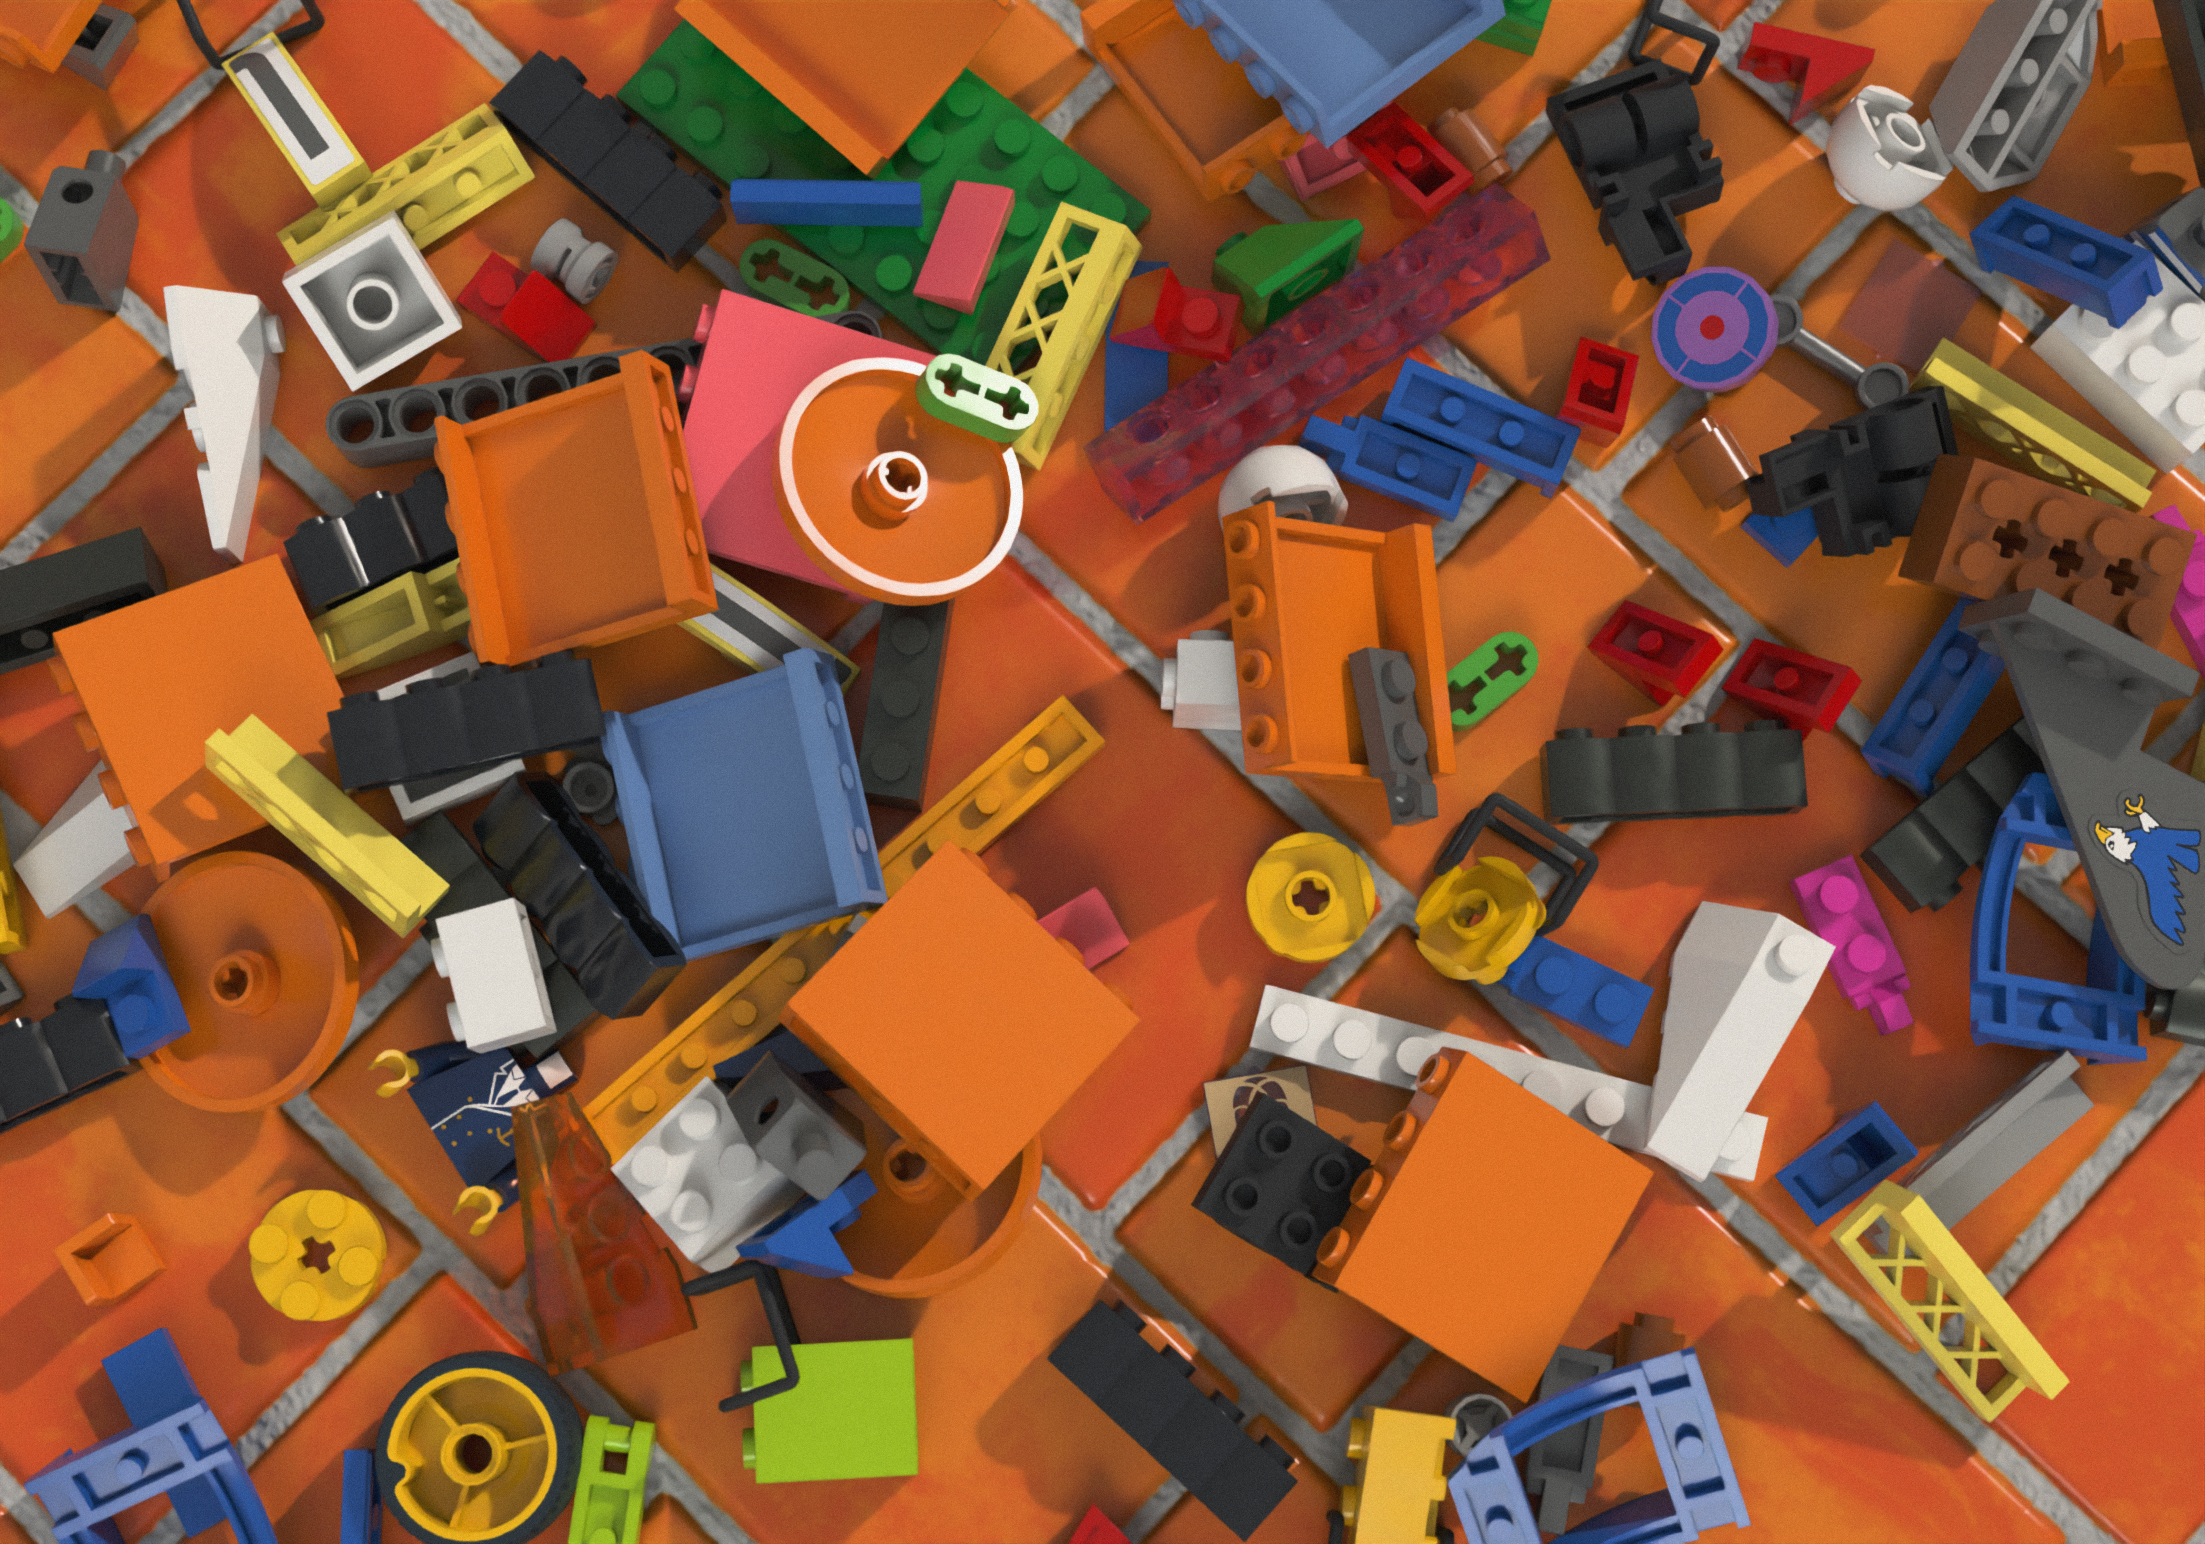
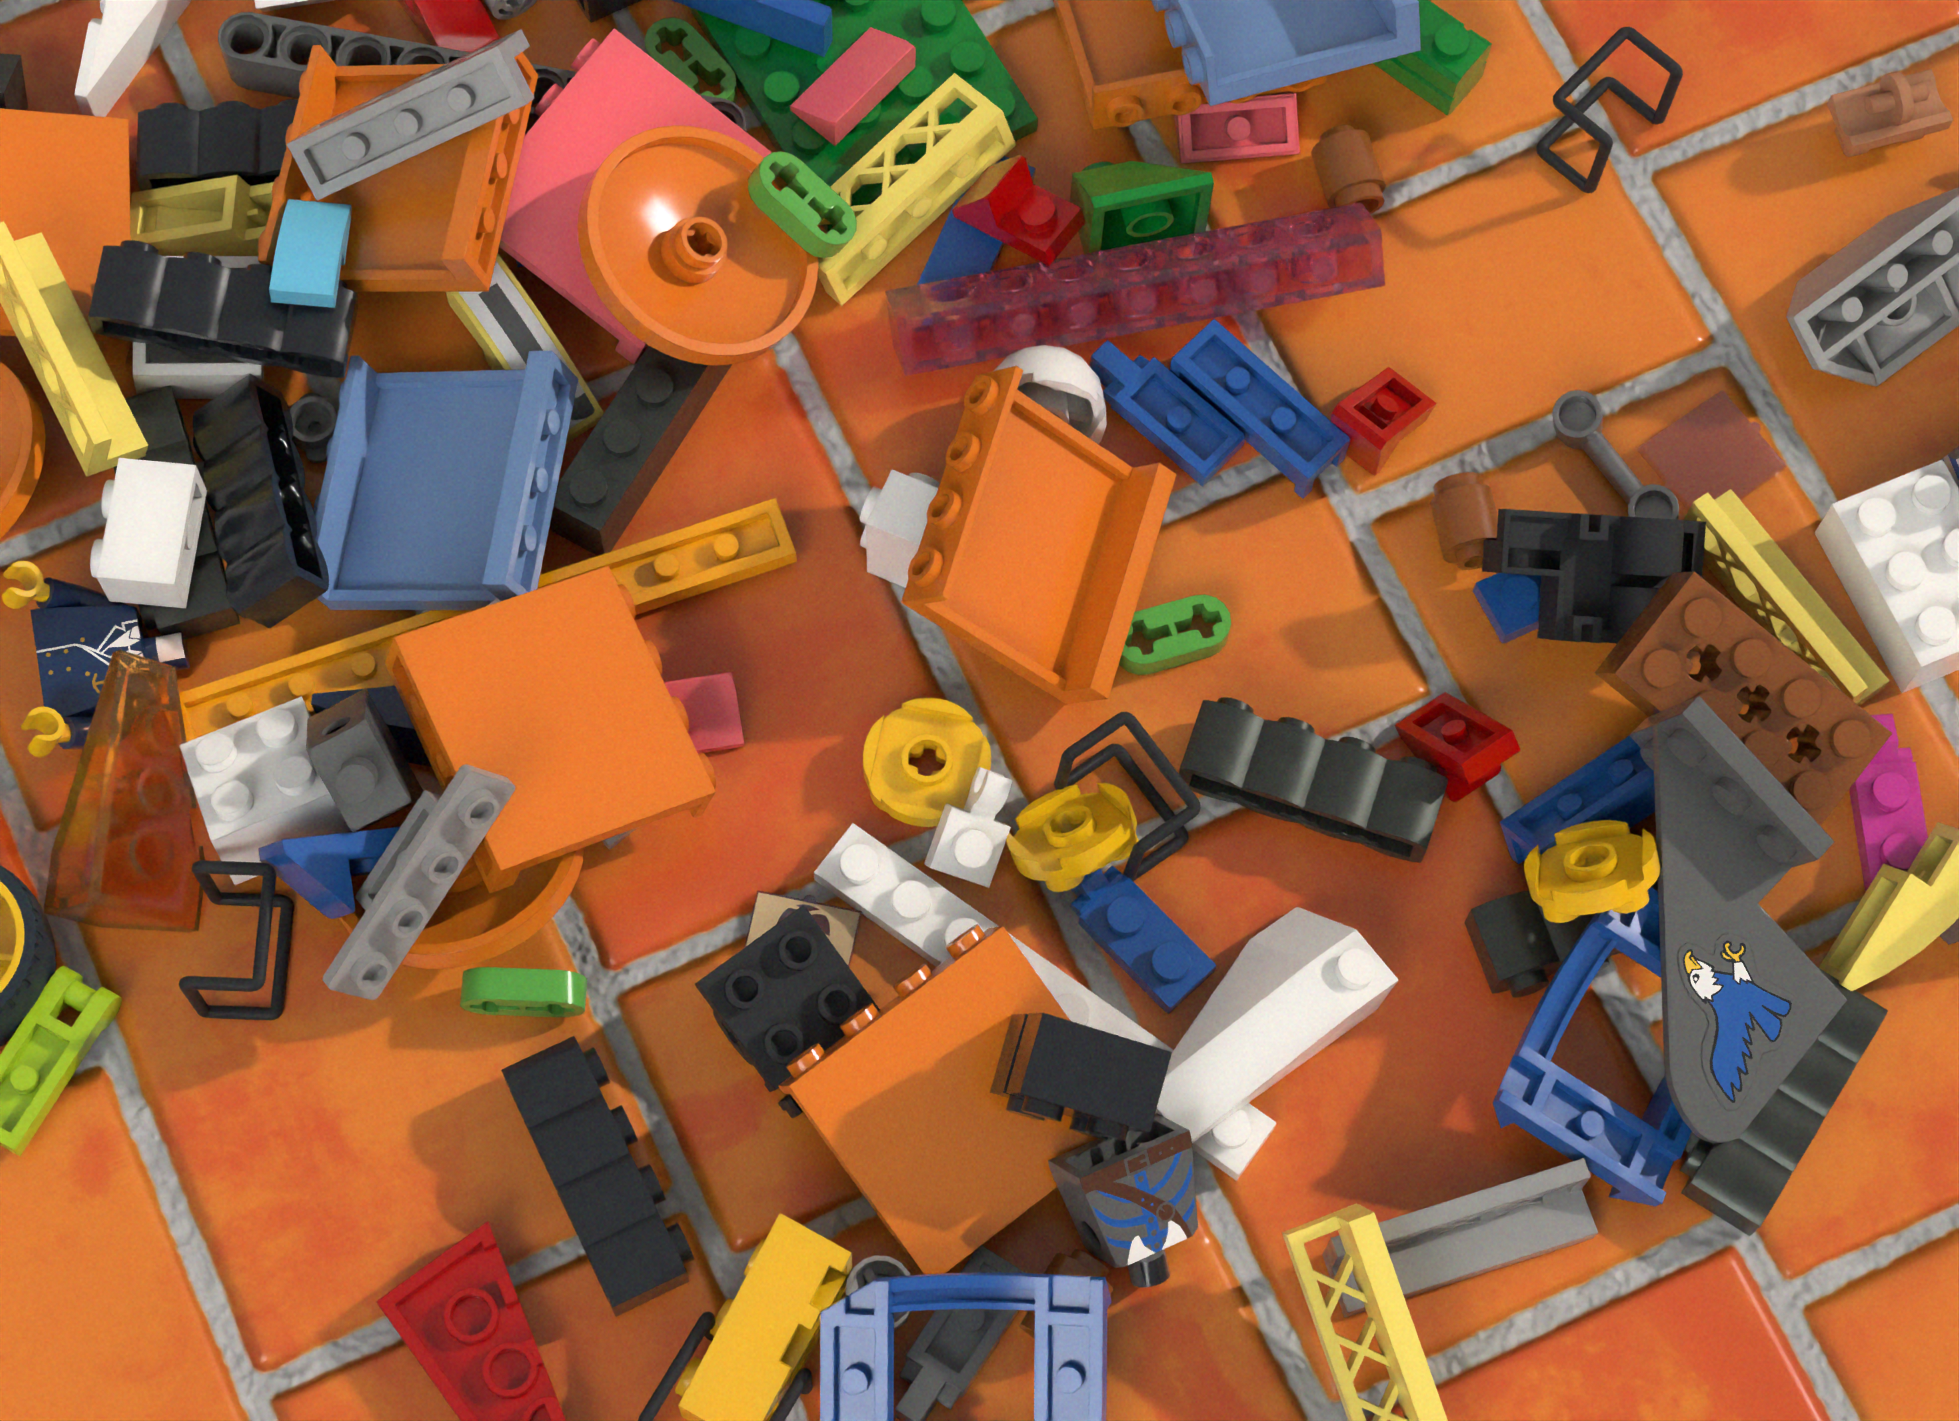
camera: 20 degrees right, 10 degrees down
(529, 637) = (310, 253): none -> medium azure slope
(574, 462) = (413, 117): none -> light grey fence
(843, 1417) = (287, 1047): lime brick -> none
(899, 1221) = (416, 877): none -> light grey bracket
(1032, 1270) = (523, 992): none -> bright green beam
(1385, 956) = (969, 838): none -> white plate
(1393, 733) = (1062, 636): dark grey hinge -> none
(1408, 163) = (1286, 154): red slope -> none
(1600, 1171) = (1079, 1072): none -> black piece
(1640, 163) = (1503, 236): black plate -> none
(1655, 651) = (1341, 666): red slope -> none
(1674, 1244) = (1132, 1197): none -> torso
(1714, 329) = (1515, 402): tile -> none
(1817, 65) = (1707, 212): red slope -> none
(1846, 1162) = (1332, 1181): blue slope -> none
(1865, 957) = (1427, 997): dark pink hinge -> none
(1884, 153) = (1734, 302): white cylinder -> none
(2013, 785) = (1592, 871): none -> yellow plate
(2067, 259) = (1868, 452): blue container -> none

